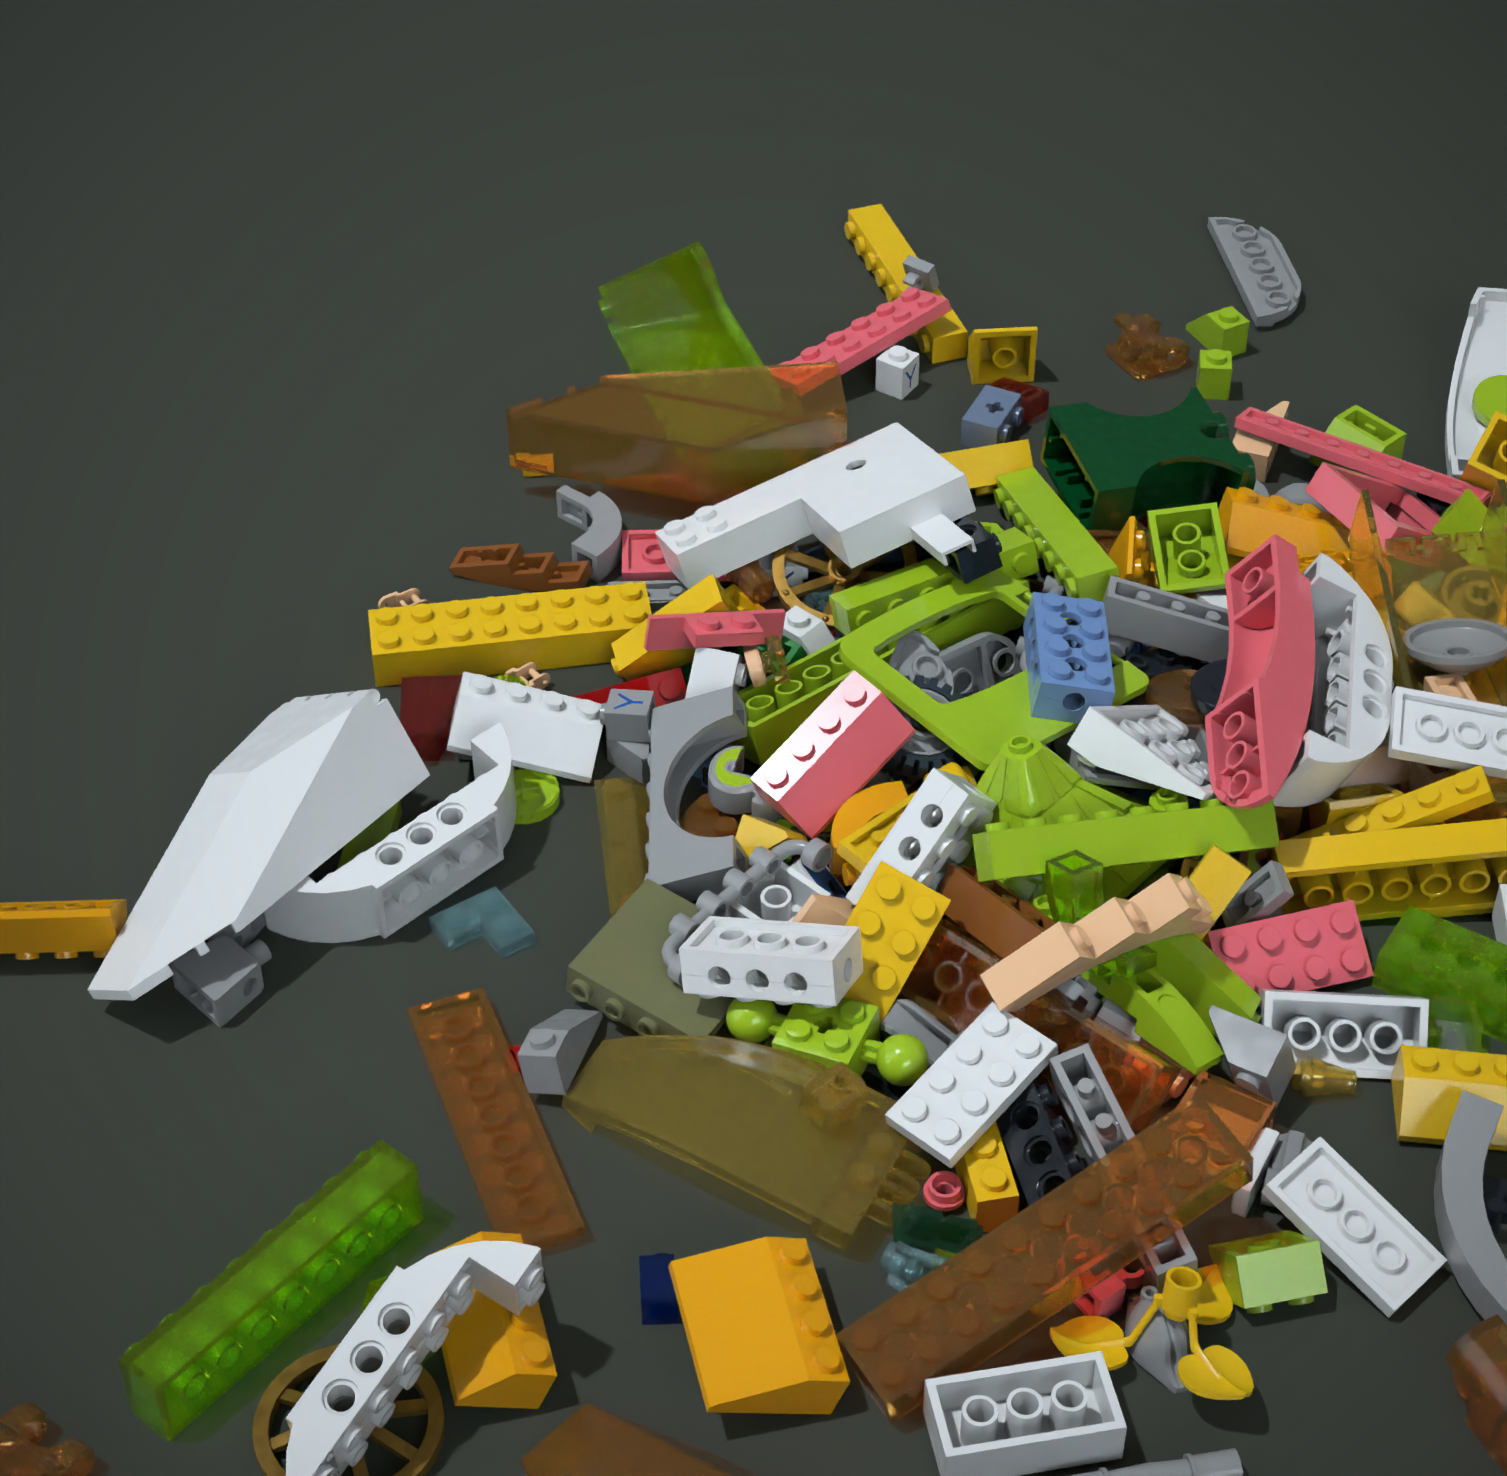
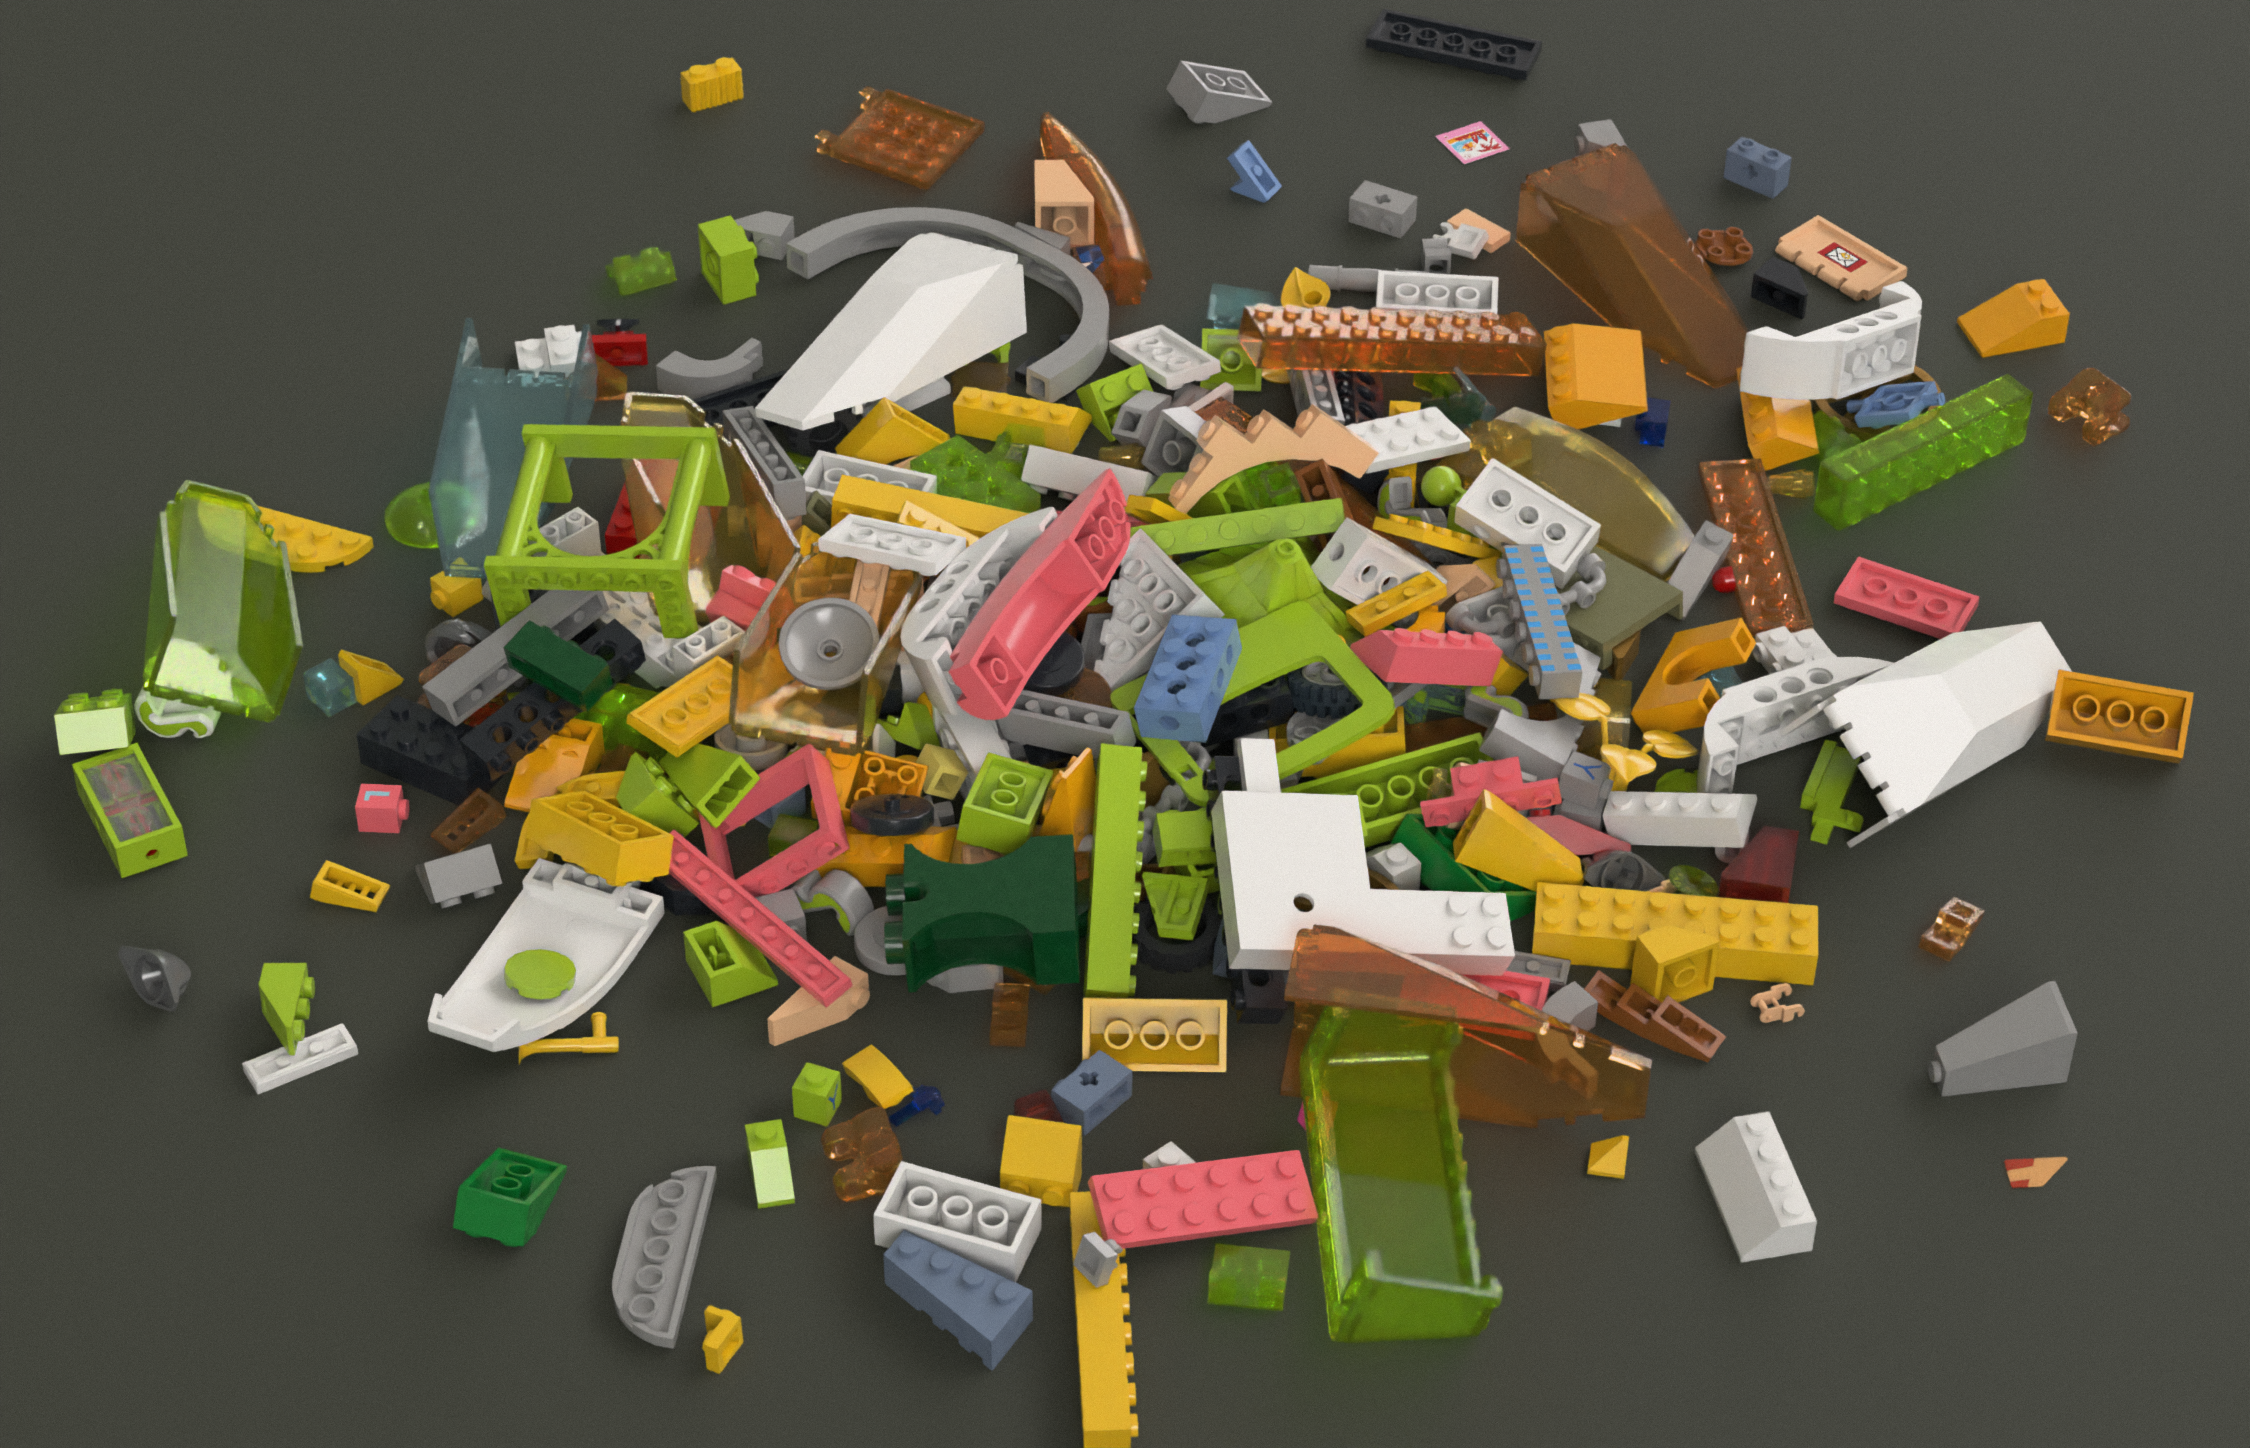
camera: 165 degrees left, 0 degrees up
(162, 524) = (2032, 1171): none -> clear orange sticker
(182, 583) = (2010, 1049): none -> light grey slope
(237, 706) = (1952, 928): none -> clear orange slope
(294, 1079) = (1905, 599): none -> coral plate
(305, 1326) = (1895, 404): none -> medium blue plate
(403, 452) = (1757, 1189): none -> white slope
(423, 970) = (1781, 650): none -> white plate
(449, 1227) = (1793, 483): none -> clear yellow cone
(505, 571) = (1675, 962): none -> yellow slope
(568, 858) = (1671, 696): none -> light orange arch
(583, 672) = (1620, 871): none -> dark grey hat
(651, 769) = (1624, 762): none -> yellow plant
(721, 830) = (1539, 621): none -> light grey brick
(800, 332) = (1248, 1277): none -> clear neon green hinge
(1020, 273) = (959, 1296): none -> sand blue wedge
(1057, 304) = (961, 1216): none -> white brick
(1124, 402) = (924, 1097): none -> clear blue piece
(1163, 394) = (878, 1076): none -> yellow slope
(1178, 231) = (722, 1337): none -> yellow bracket
(1286, 509) = (892, 814): none -> black wheel
(1300, 1371) = (1228, 303): none -> clear light blue slope
(1324, 1104) = (1139, 417): none -> light grey slope
(1385, 1149) = (1108, 394): none -> lime slope
(1399, 274) = (507, 1197): none -> green slope
(1423, 392) = (597, 1044): none -> yellow piece

